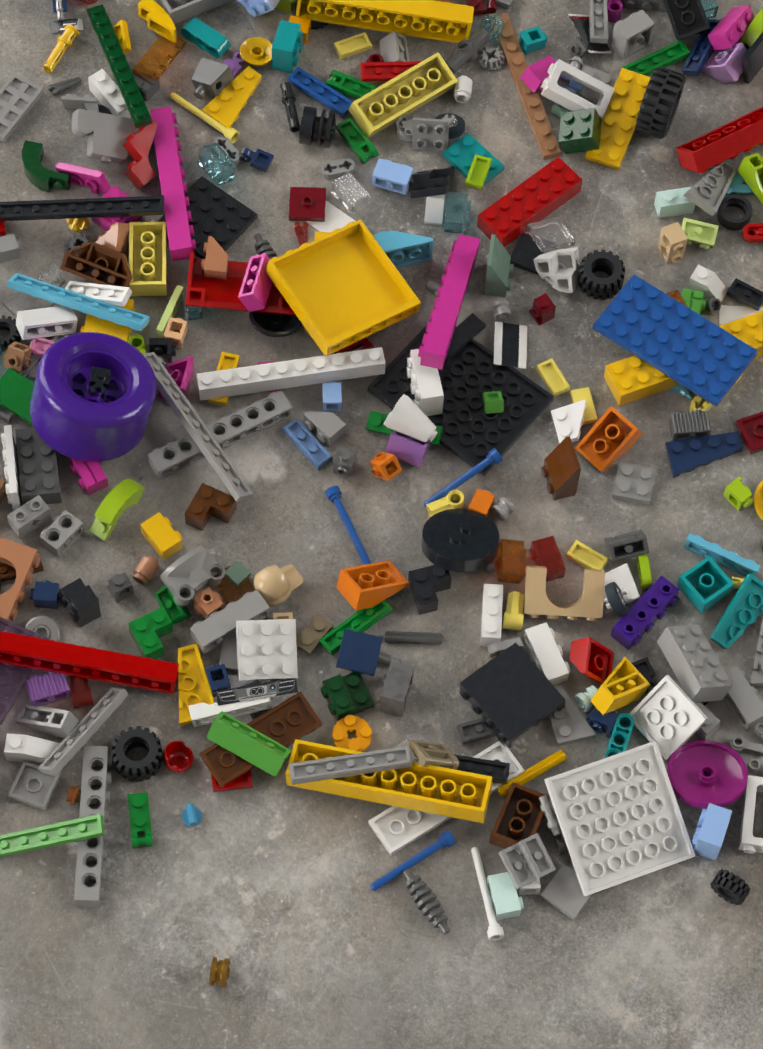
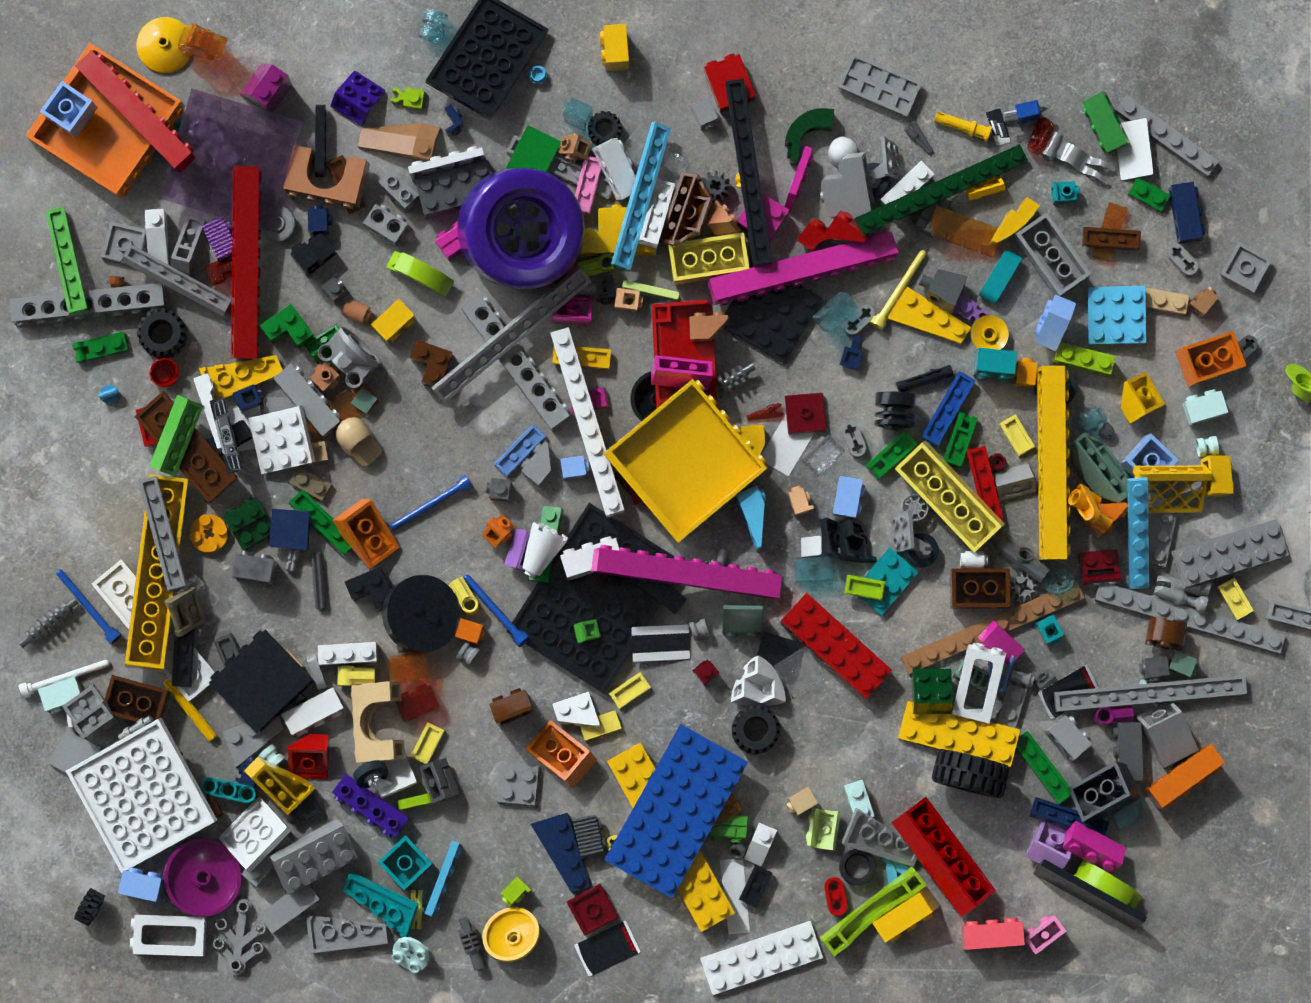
camera: 85 degrees right, 20 degrees up
(65, 144) = (840, 148): none -> white hair
(390, 216) = (799, 500): none -> light nougat brick
(490, 84) = (980, 588): none -> reddish brown brick

